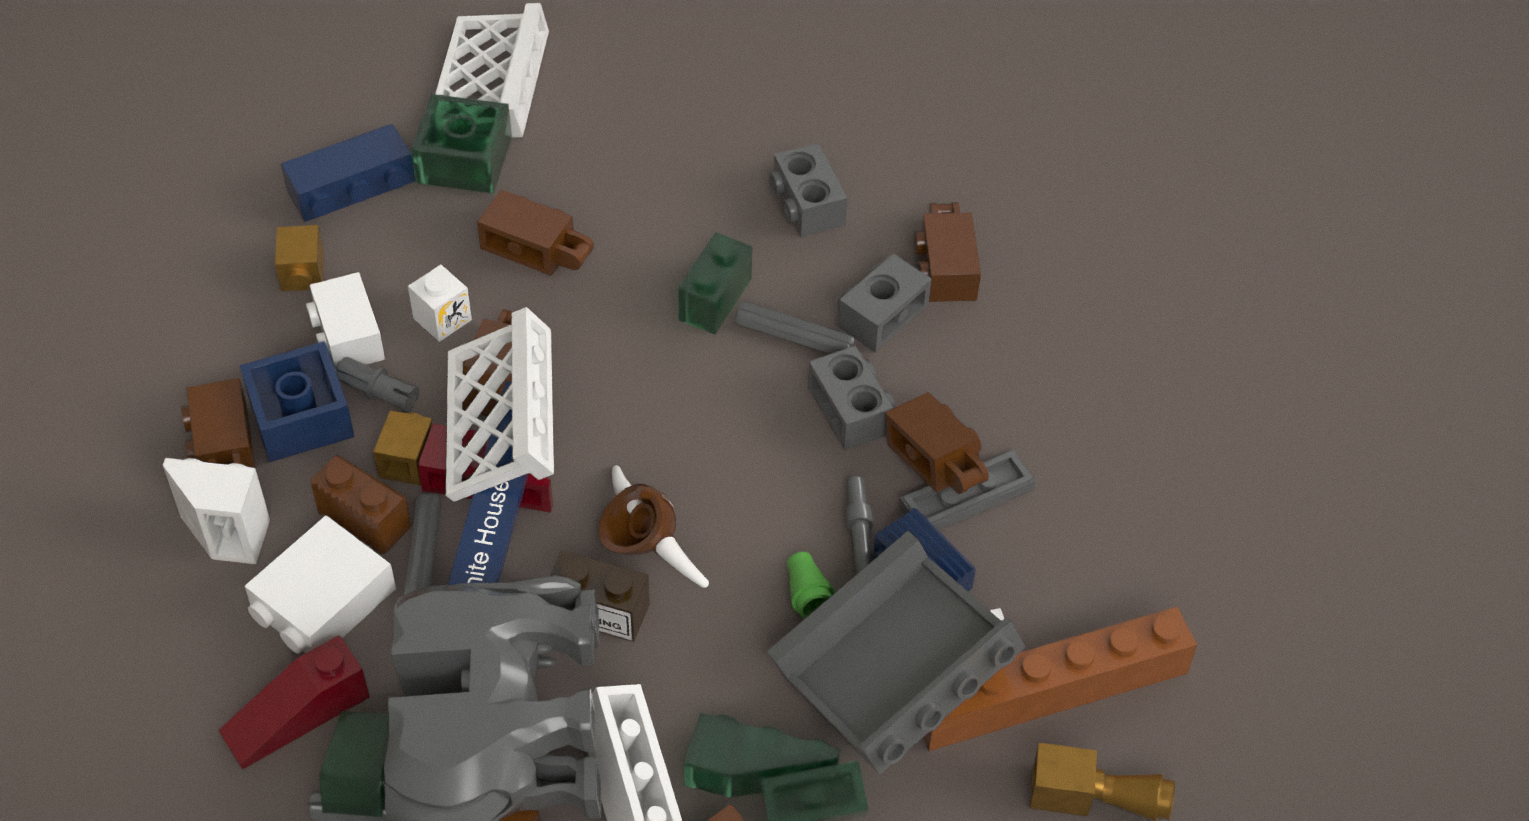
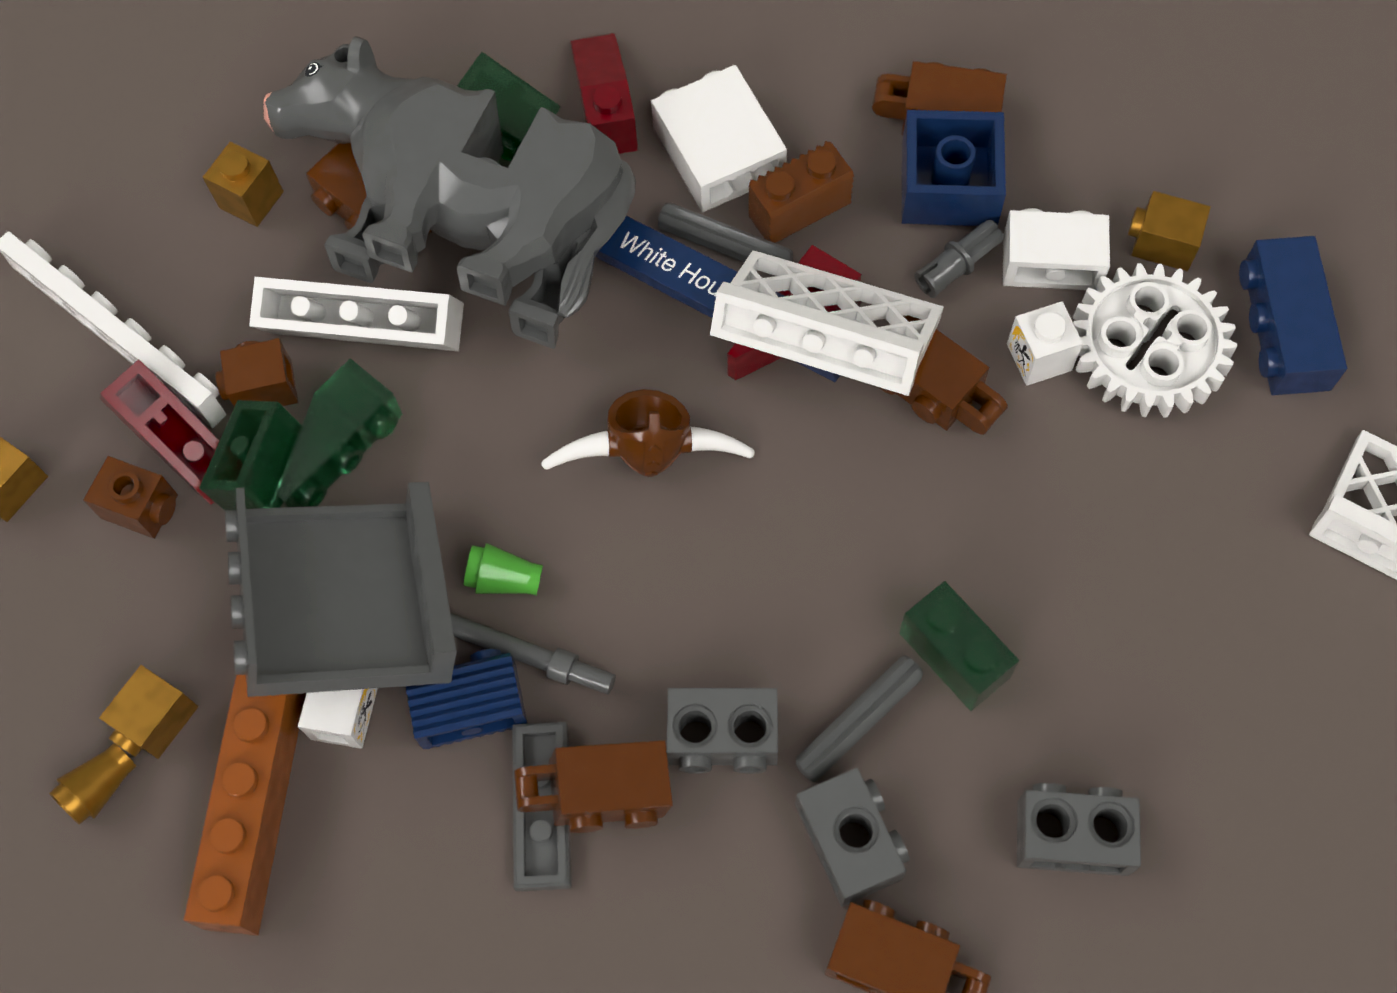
camera: 120 degrees right, 15 degrees up
(220, 507) = (837, 63): white slope -> none
(401, 446) = (862, 249): pearl gold brick -> none
(403, 242) = (1191, 365): none -> white gear
(462, 143) = (1294, 440): clear green brick -> none
(532, 234) = (1121, 475): reddish brown brick -> none
(619, 592) = (585, 363): dark brown brick -> none

